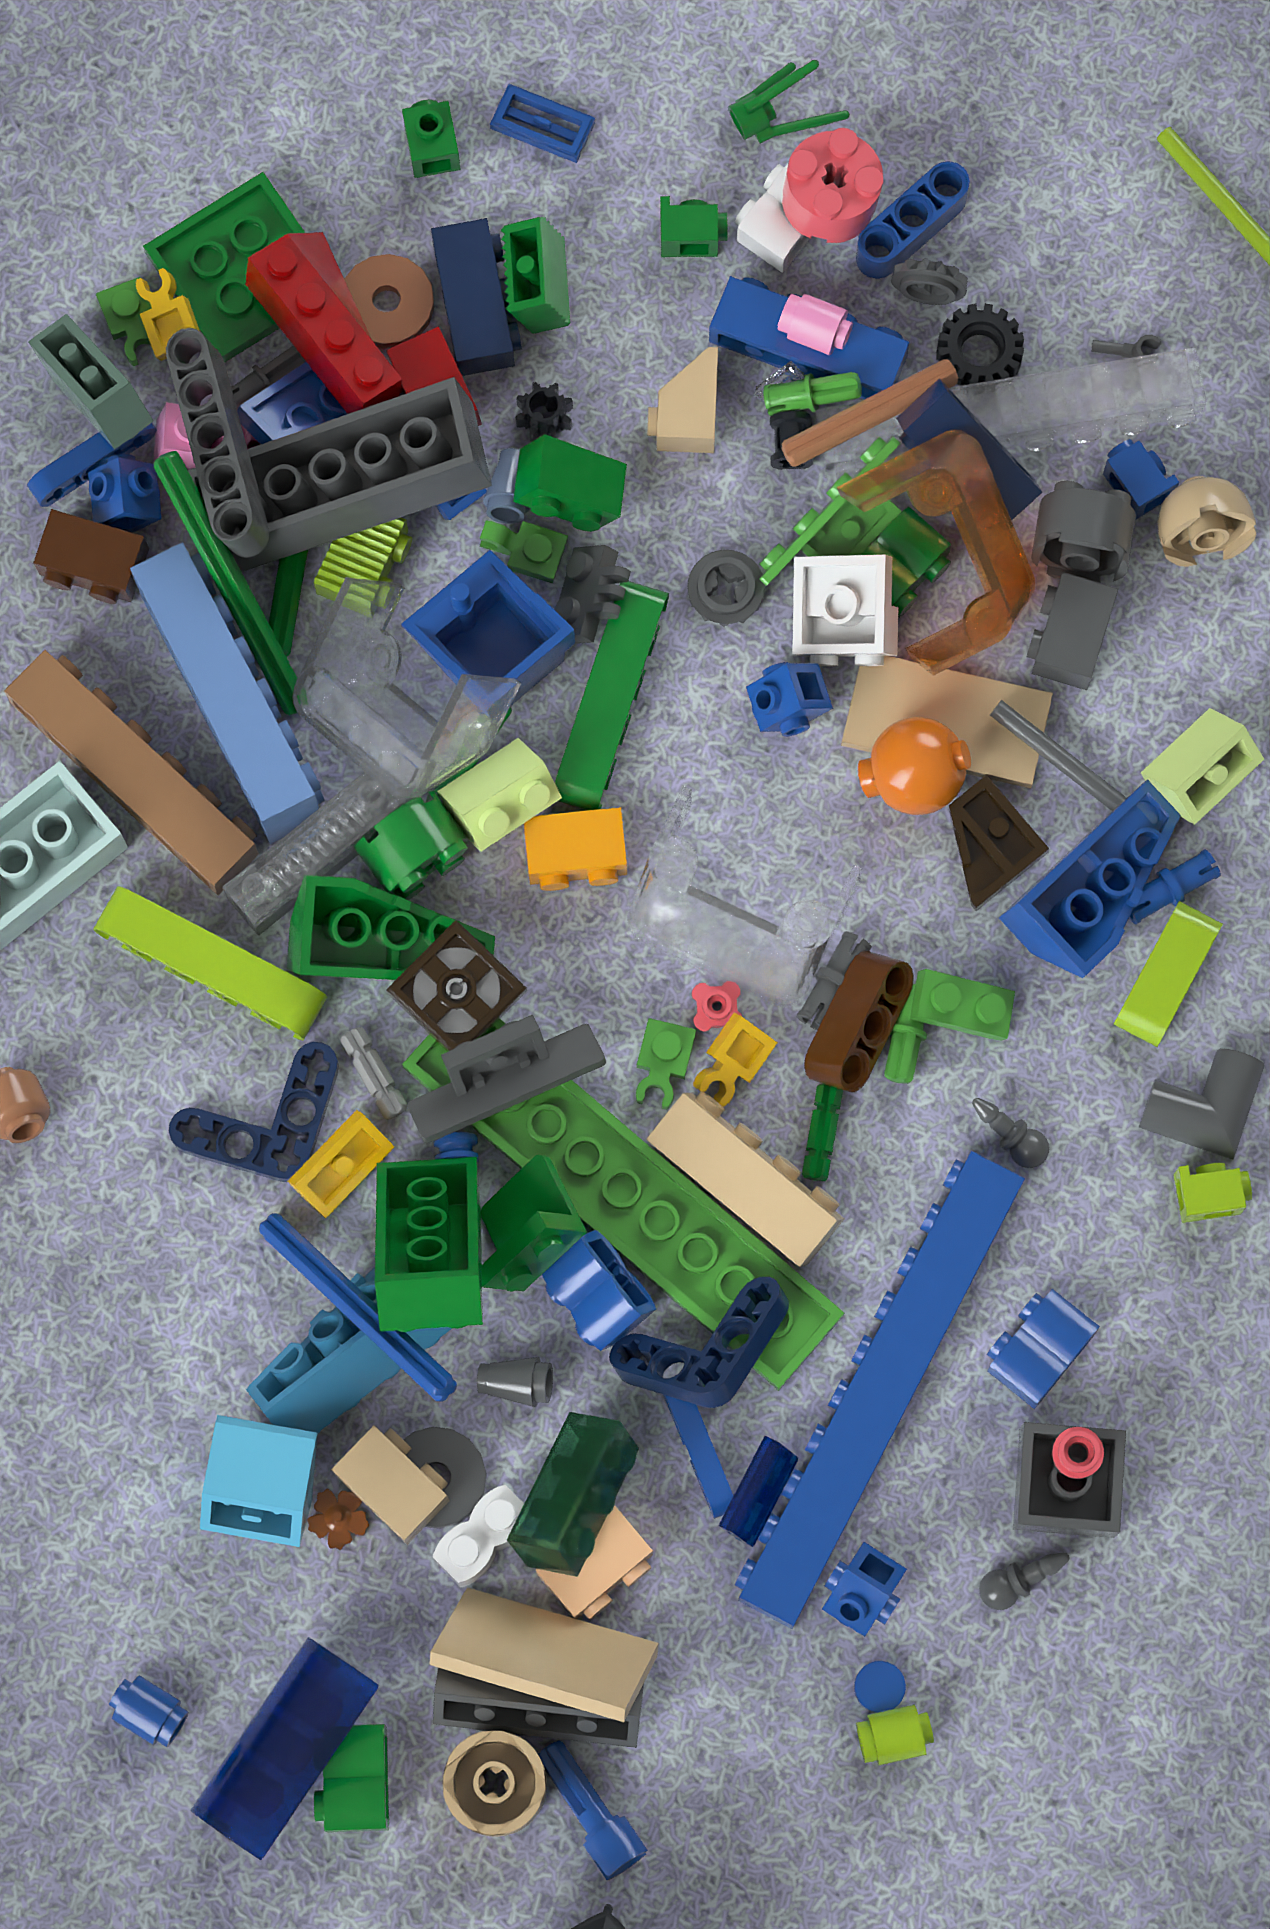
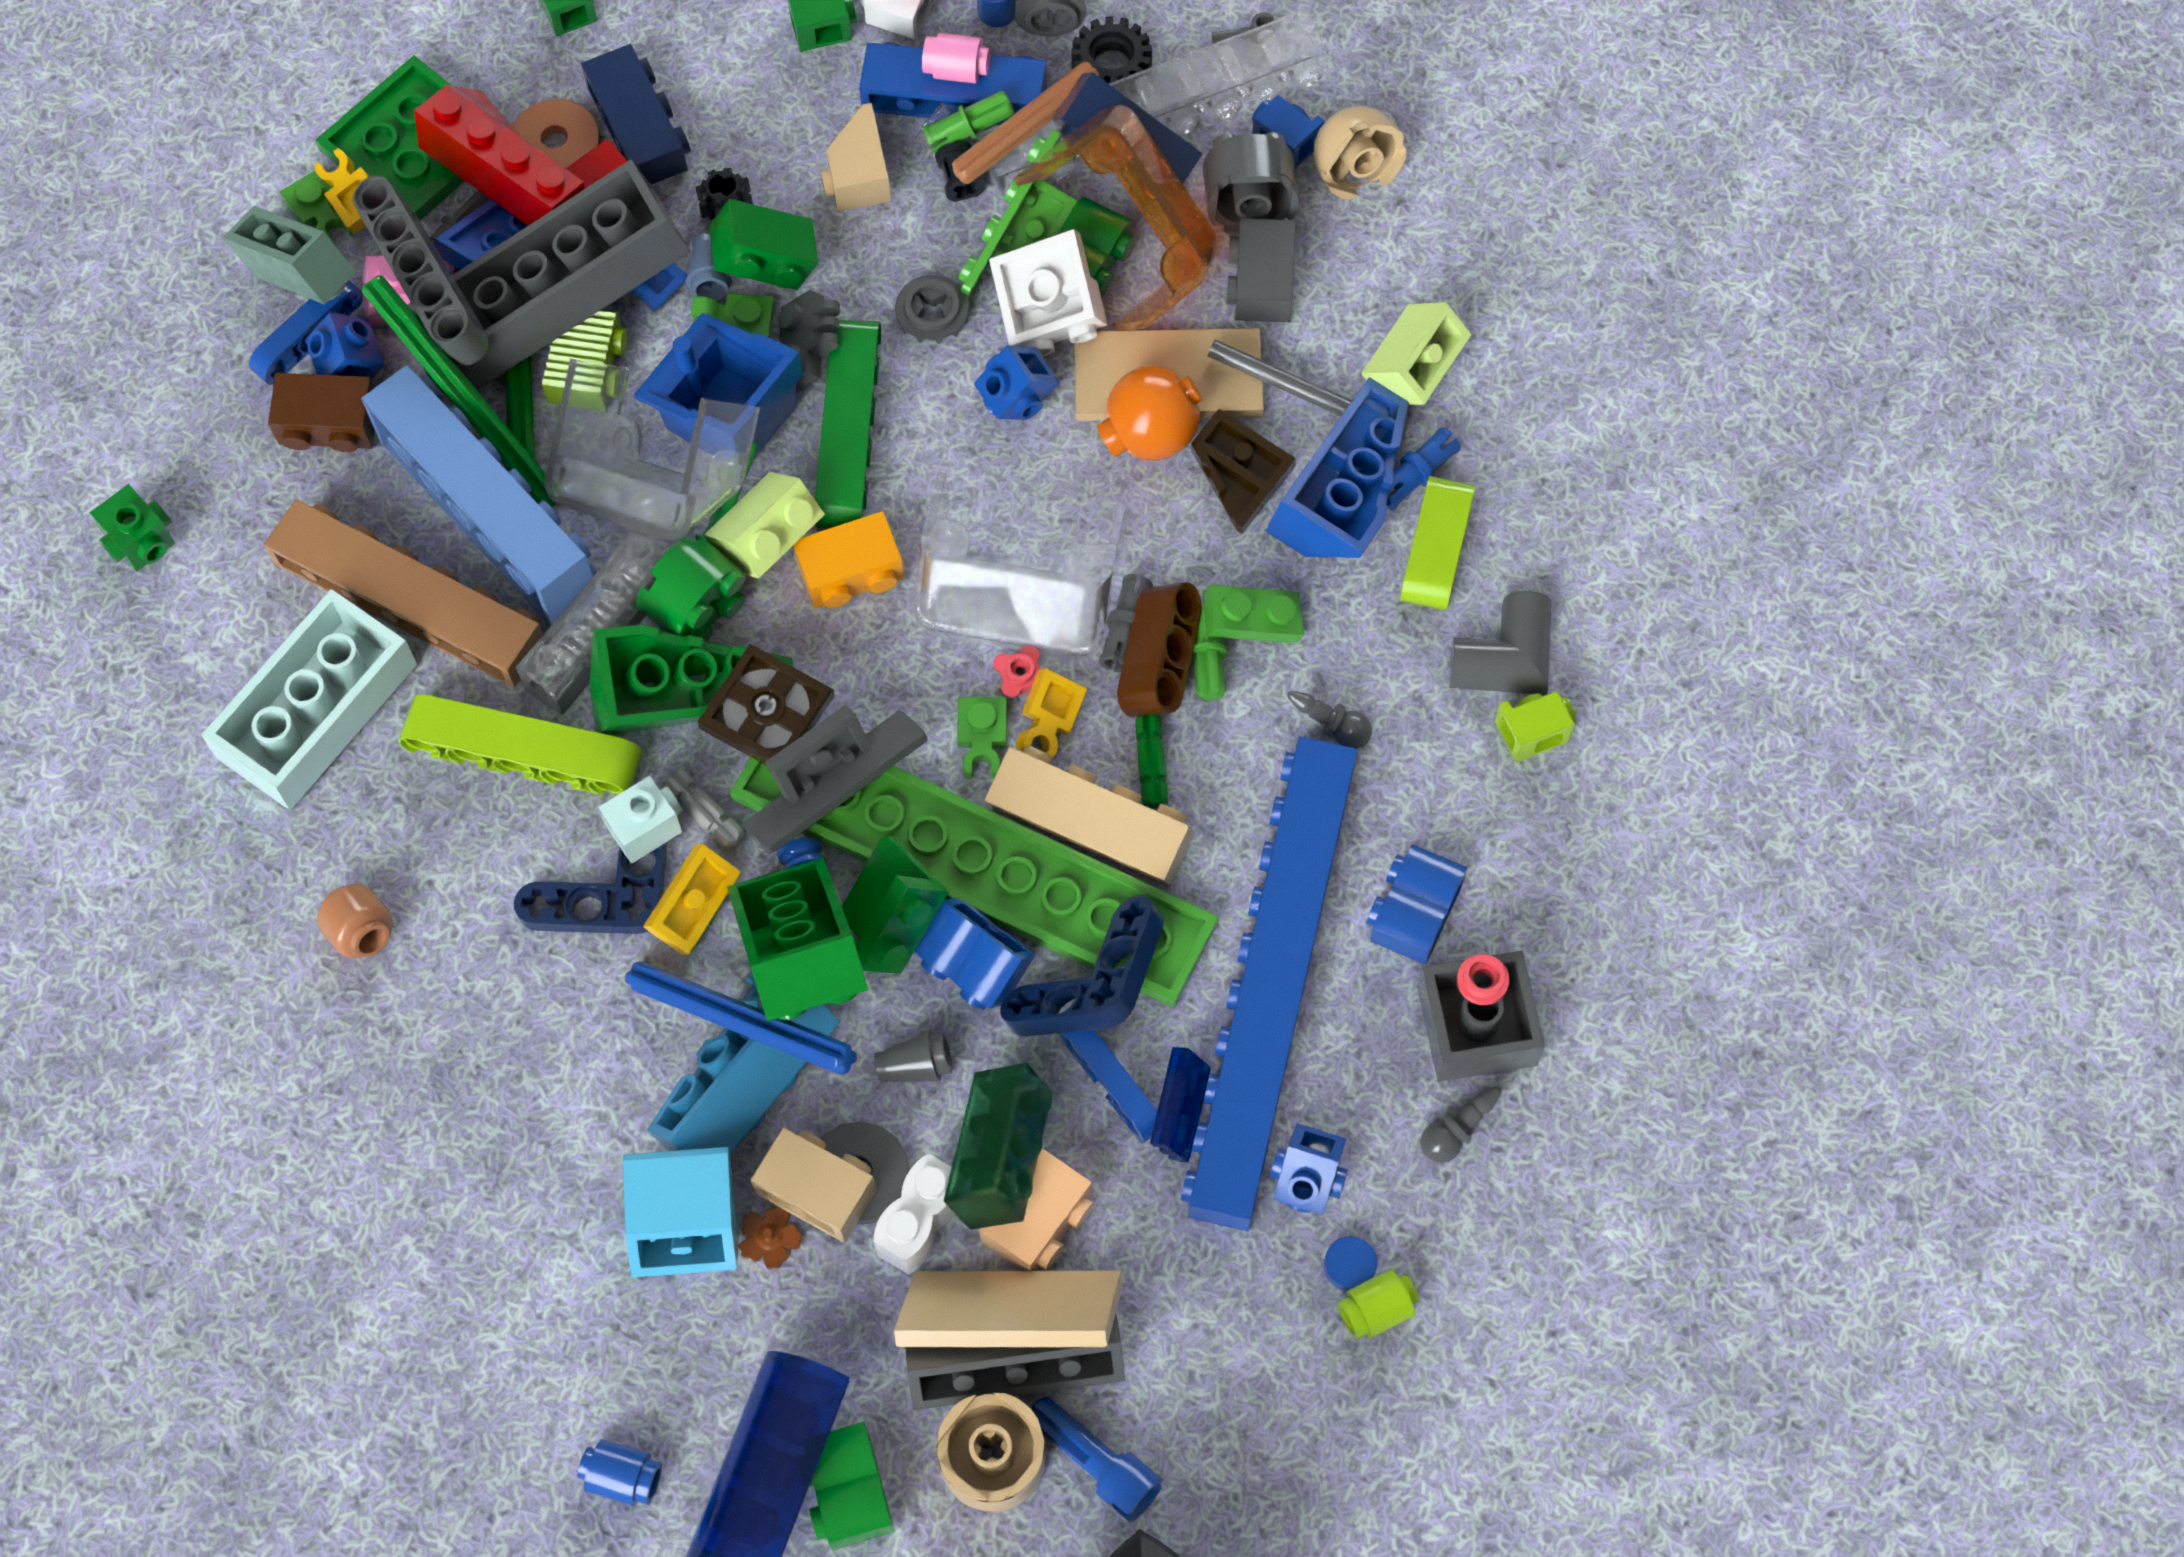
camera: 15 degrees left, 10 degrees down
(311, 1074) = (642, 818): none -> light aqua brick
(536, 275) = (688, 82): green brick -> none

